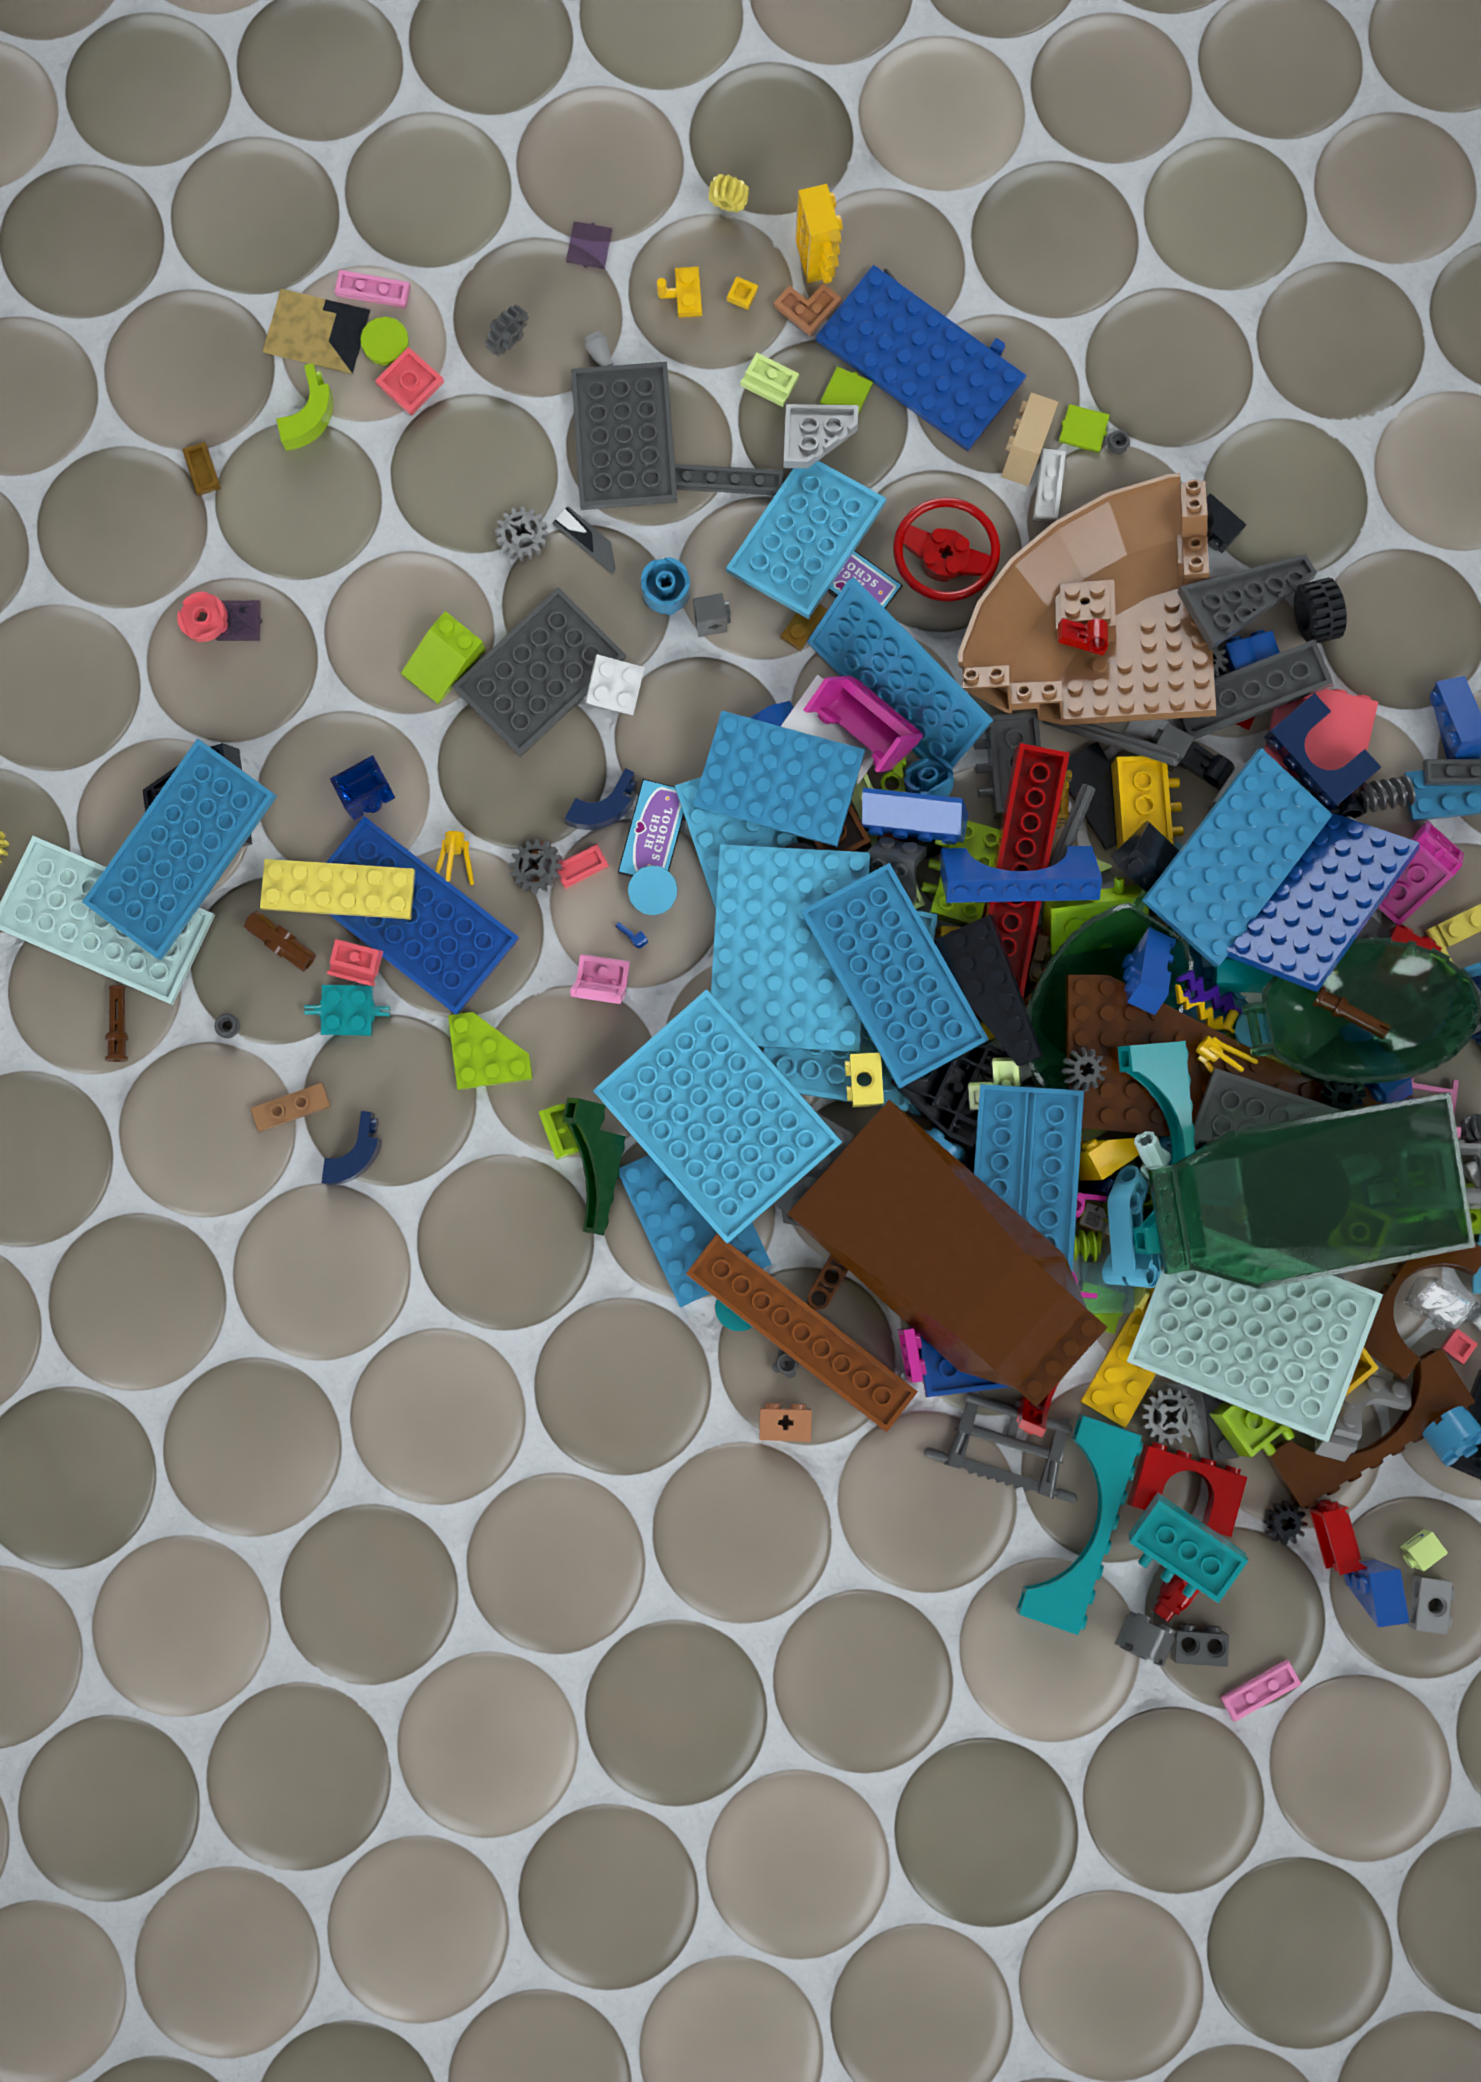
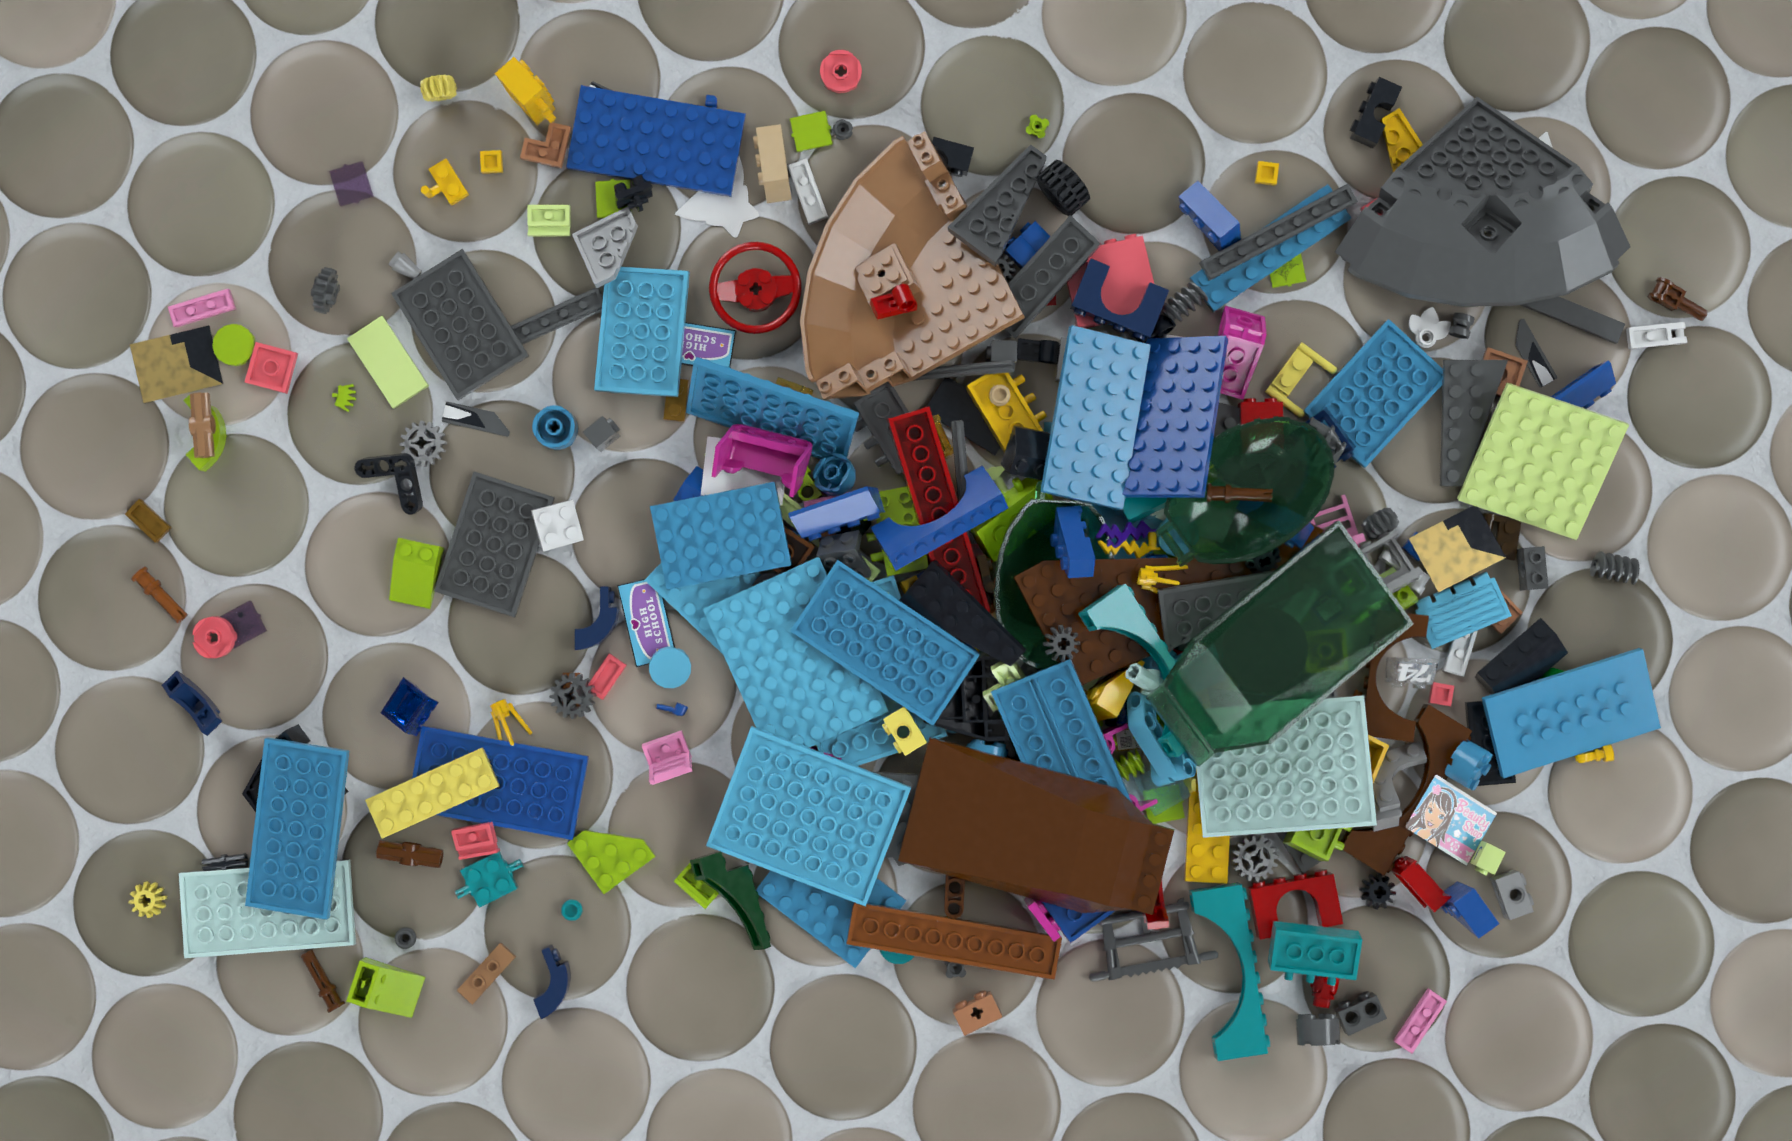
camera: 35 degrees left, 5 degrees up
(86, 850) = (225, 862): none -> black pin
(146, 669) = (193, 701): none -> dark blue arch
(169, 537) = (153, 588): none -> dark orange pin
(178, 1065) = (385, 988): none -> lime slope
(309, 396) = (202, 425): none -> medium nougat piece
(415, 1088) = (571, 910): none -> teal plate
(467, 448) = (344, 396): none -> lime piece
(483, 550) = (401, 472): none -> black beam
(530, 436) = (388, 362): none -> yellowish green tile
(870, 397) = (633, 196): none -> black hips
(952, 460) = (720, 209): none -> white sticker
(1141, 396) = (849, 63): none -> coral plate
(1147, 783) = (999, 395): none -> tan plate
(1316, 544) = (1039, 132): none -> lime plate
(1403, 1487) = (1451, 820): none -> sticker

